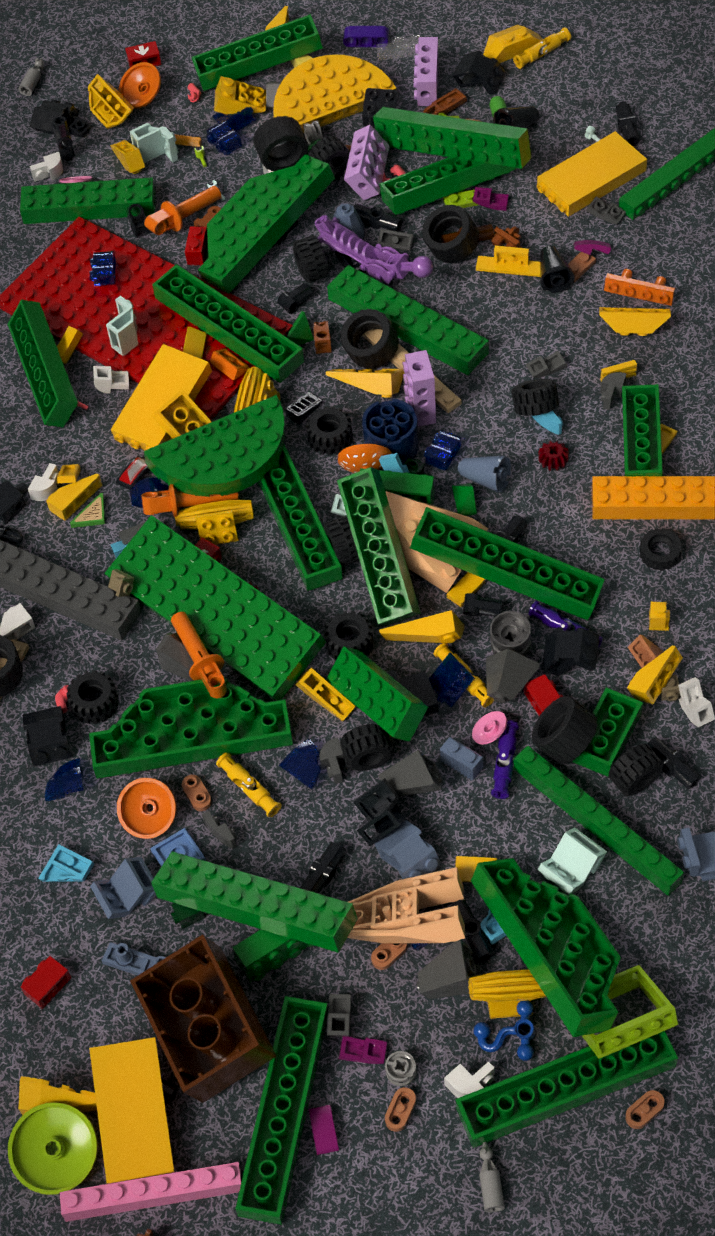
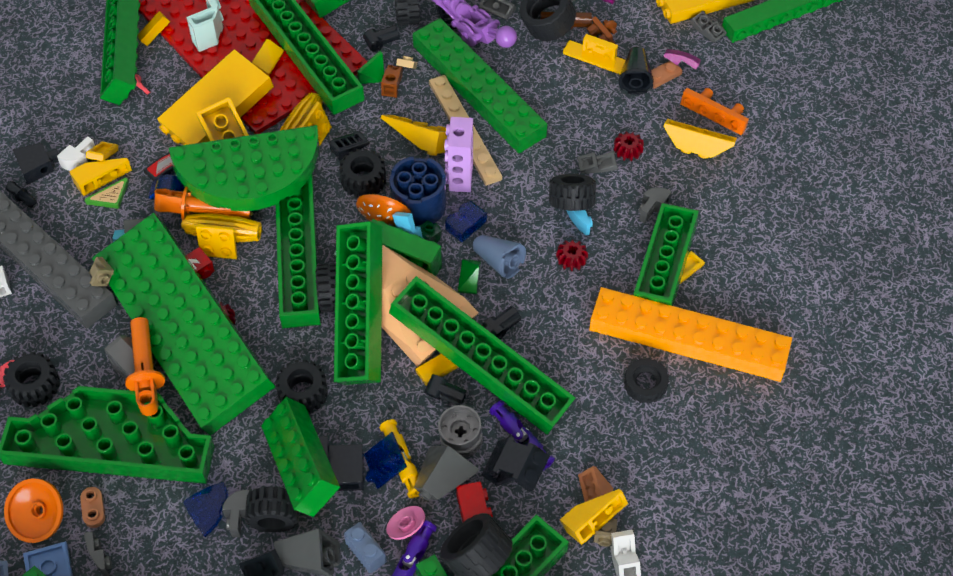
camera: 10 degrees right, 0 degrees up
(106, 379) = (174, 70): white brick -> none
(228, 363) = (293, 84): orange slope -> none
(242, 779) = (140, 503): yellow piece -> none
(325, 694) = (254, 439): yellow slope -> none
(330, 315) = (407, 62): none -> tan plate
(359, 324) = (424, 79): black tyre -> none
(433, 629) = (389, 403): yellow wedge -> none
(570, 342) = (628, 146): none -> dark red gear
(626, 367) = (675, 186): yellow tile -> none
(659, 616) = (619, 451): yellow brick -> none

